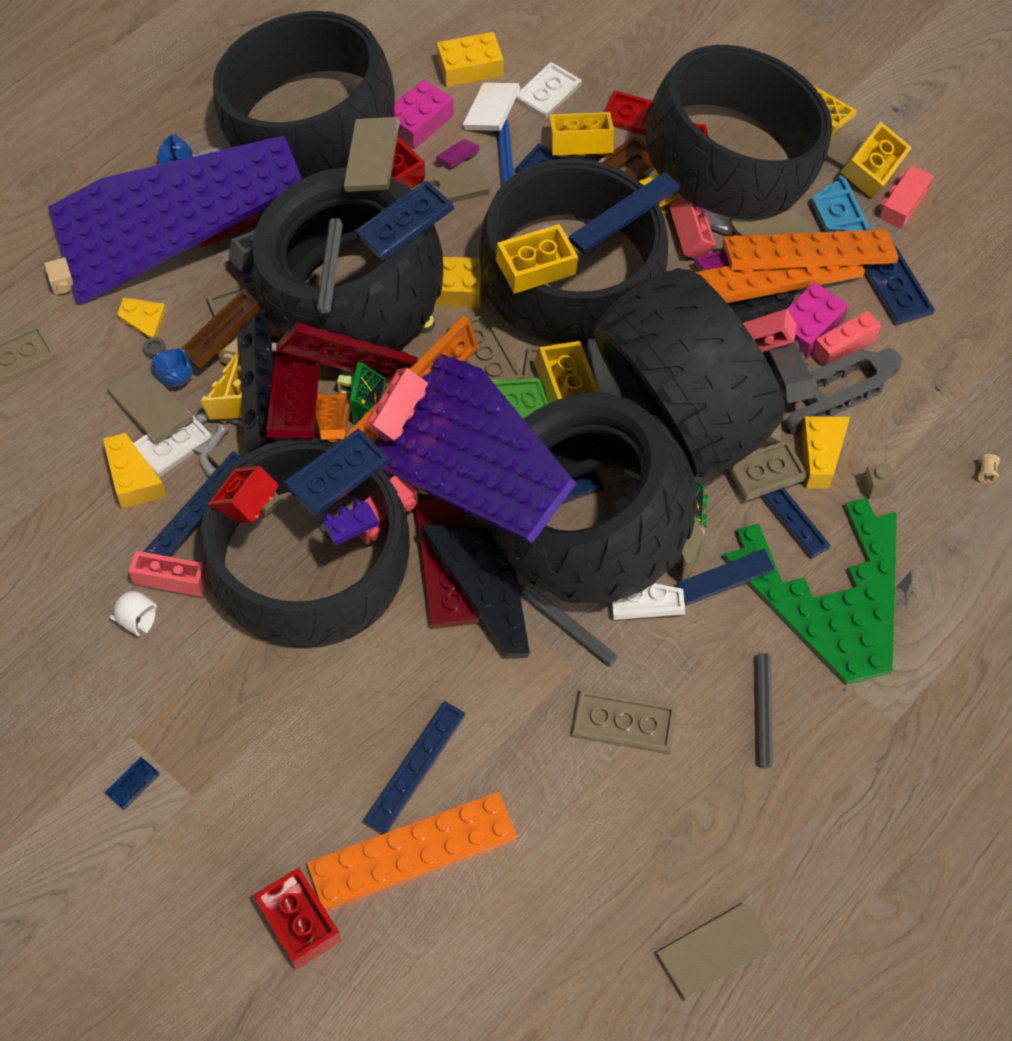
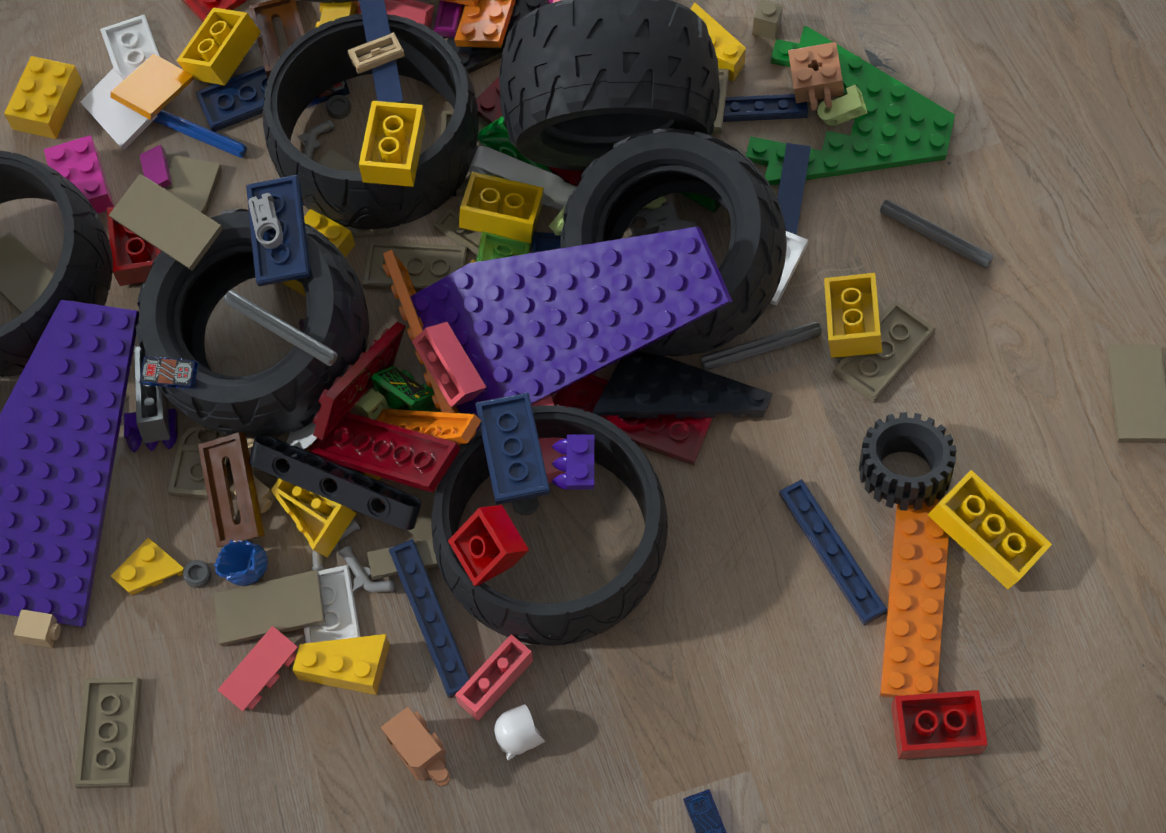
camera: 55 degrees left, 5 degrees up
(85, 548) = (416, 747): none -> nougat hinge
(95, 419) = (259, 669): none -> coral brick
(260, 223) = (168, 372): none -> tile
(402, 203) = (265, 218): none -> light grey piece
(496, 876) = (989, 530): none -> yellow brick
(519, 112) = (151, 86): none -> light orange tile
(529, 755) = (909, 436): none -> black tyre
(610, 212) = (377, 56): none -> tan tile
(633, 675) = (853, 315): none -> yellow brick
(832, 578) = (843, 108): none -> yellowish green leg
(845, 539) = (816, 74): none -> nougat hinge

